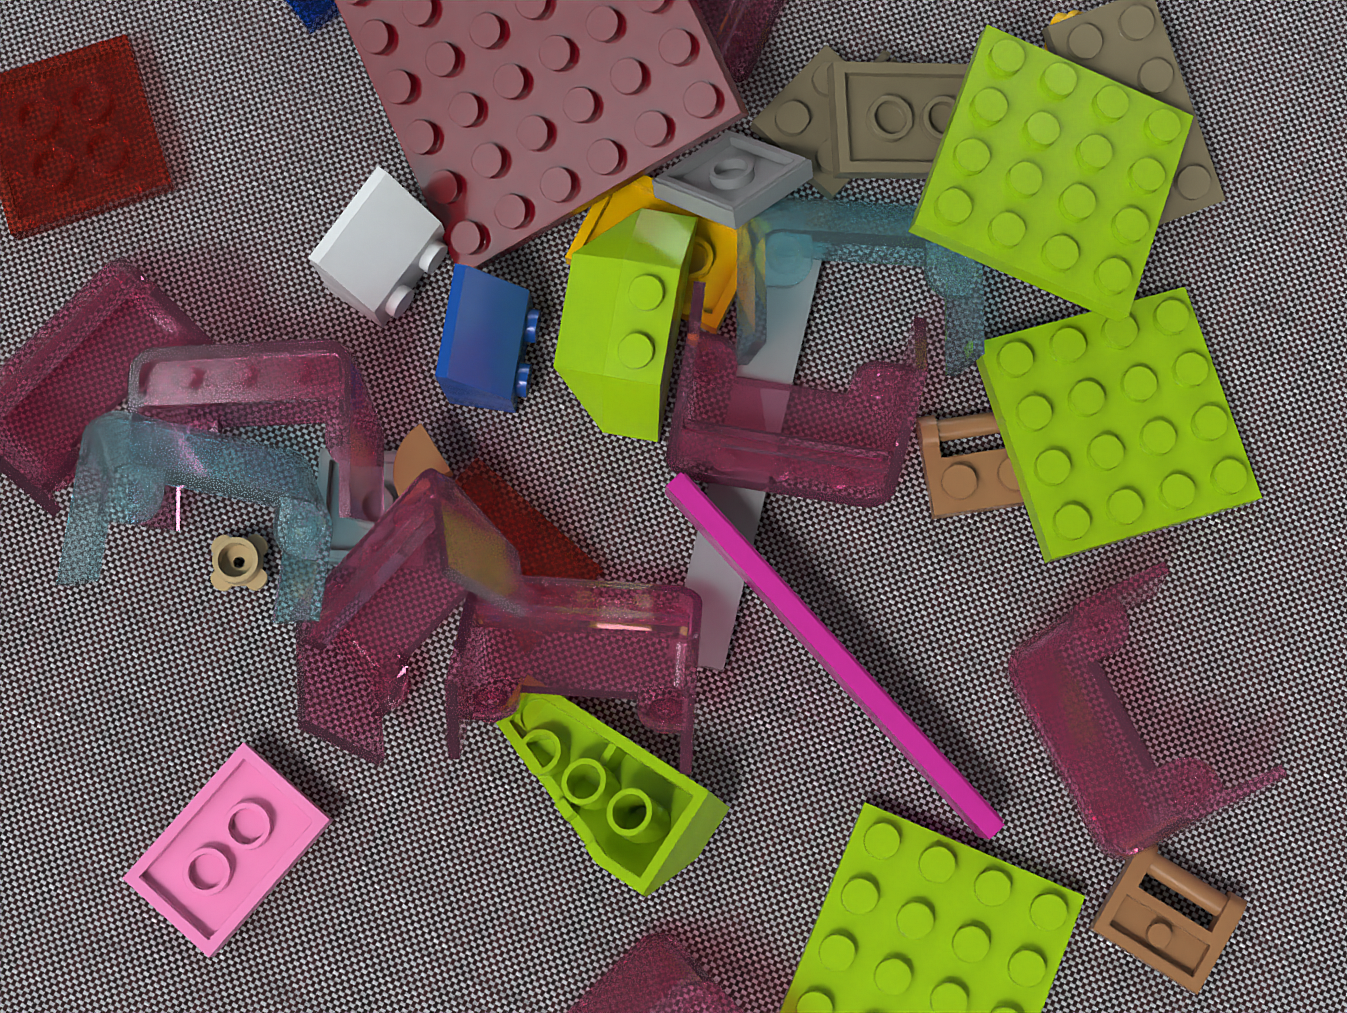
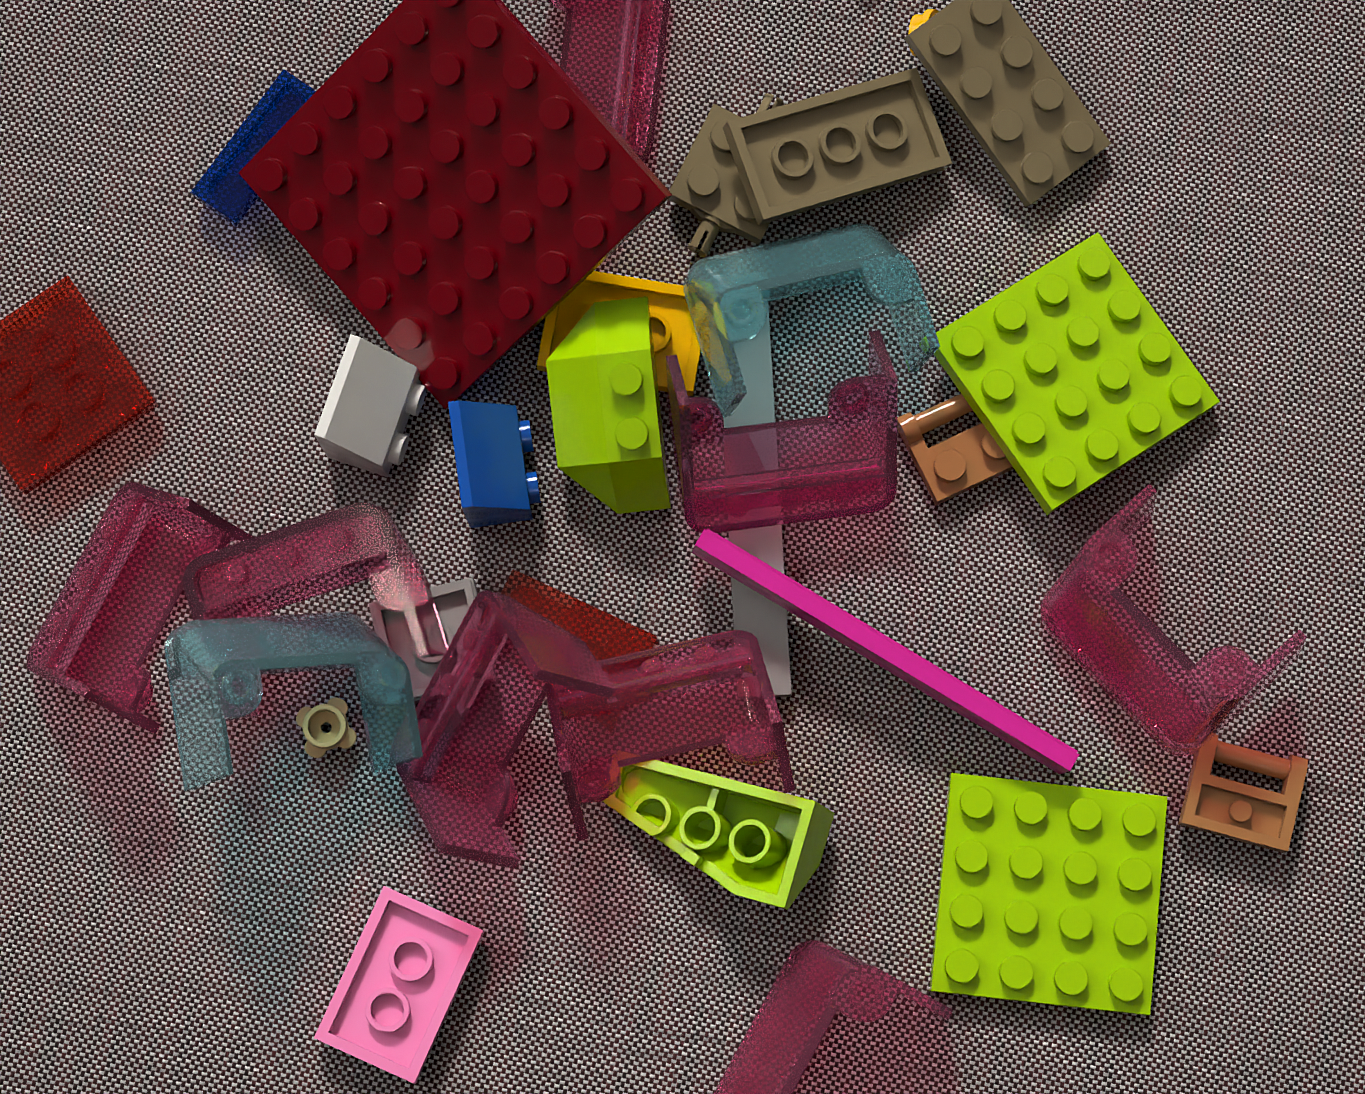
camera: 20 degrees left, 0 degrees up
(416, 455) = (461, 587): medium nougat tile -> none
(732, 179) = (669, 253): light grey plate -> none
(1052, 174) = (952, 168): lime plate -> none

